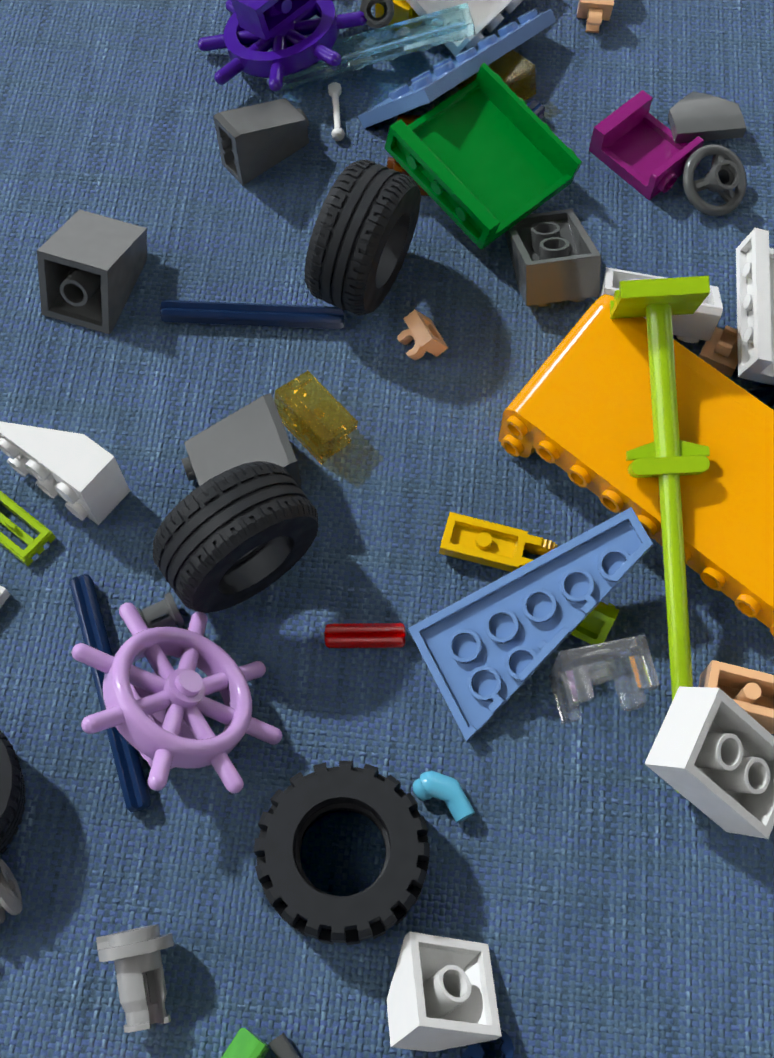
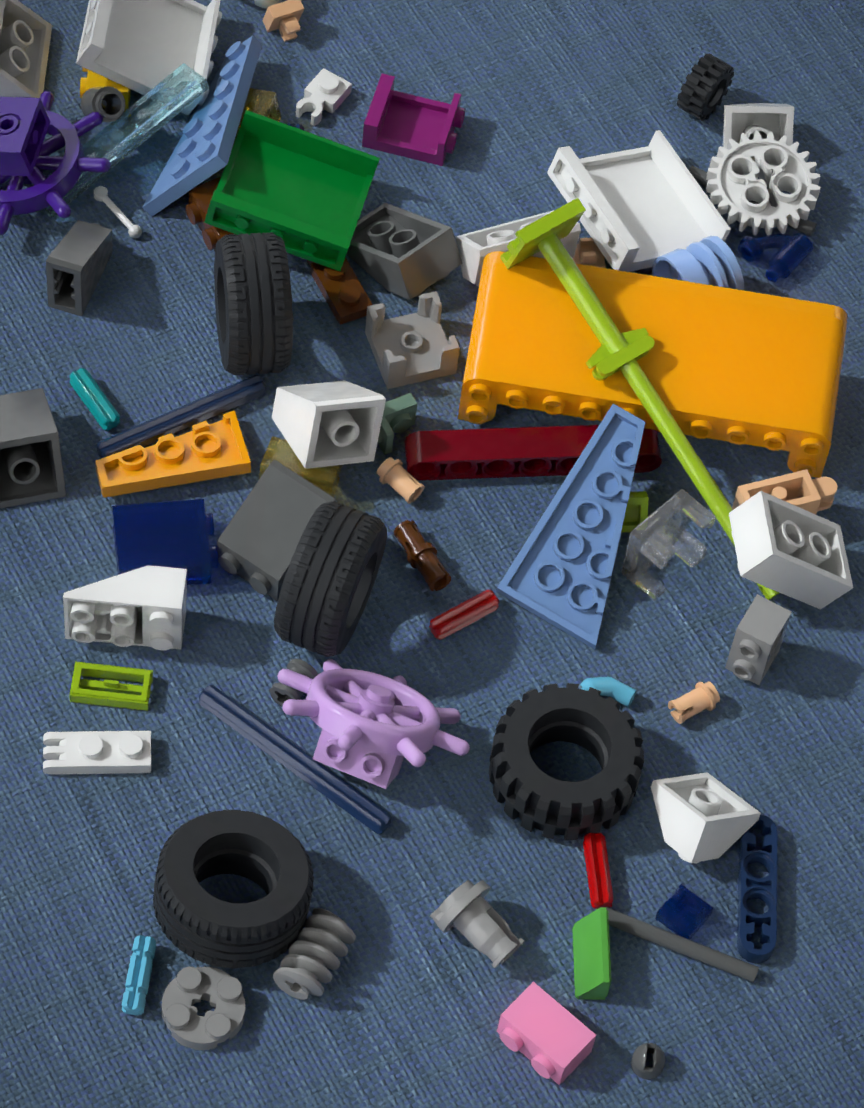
camera: 40 degrees left, 10 degrees down
(145, 419) = (165, 536): none -> clear blue brick
(193, 261) = (94, 399): none -> teal axle
(236, 355) = (196, 456): none -> light orange wing
(302, 986) = (598, 870): none -> red axle
(359, 384) = (329, 422): none -> white slope
(366, 556) = (422, 555): none -> reddish brown pin
(396, 462) = (399, 479): none -> light nougat pin
(425, 336) = (340, 362): light nougat tile -> none
(430, 407) = (397, 417): none -> sand green bracket
(475, 271) = (341, 291): none -> reddish brown hinge
(490, 543) = (512, 496): yellow hinge -> none
(499, 349) = (411, 345): none -> light grey panel
(520, 499) = (509, 452): none -> dark red beam
(524, 860) = (697, 700): none -> light nougat pin
(586, 89) = (323, 93): none -> white plate
(626, 837) = (758, 640): none -> light grey brick
(705, 117) = (444, 73): dark grey slope -> none
(725, 174) = (494, 119): dark grey piece -> none

